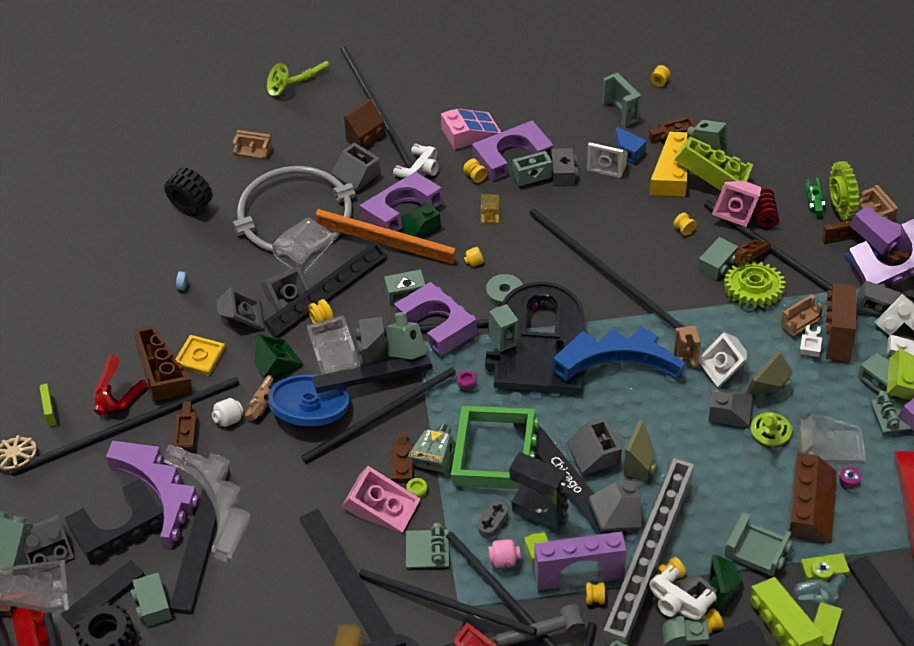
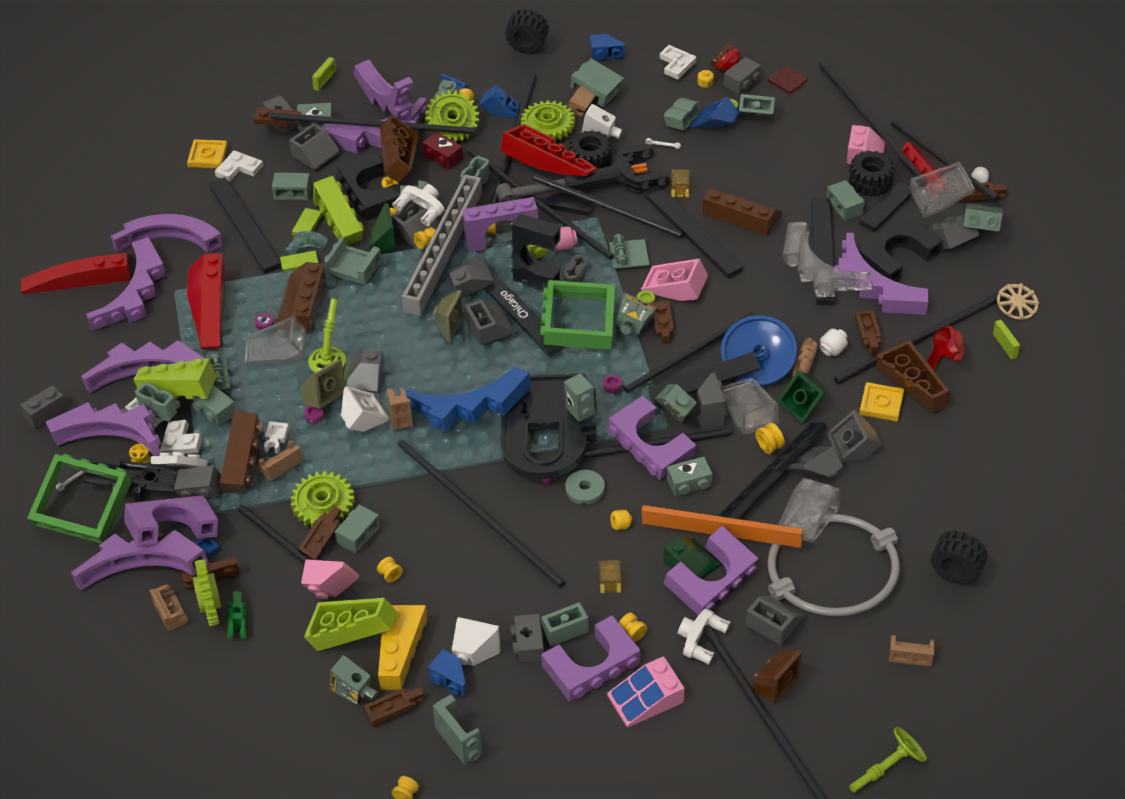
camera: 175 degrees right, 0 degrees up
(181, 280) = (928, 469): light blue tile -> none
(280, 598) = (740, 211): none -> reddish brown slope
(766, 209) = (296, 595): dark red piece -> none
(822, 569) = (302, 251): lime tile -> none

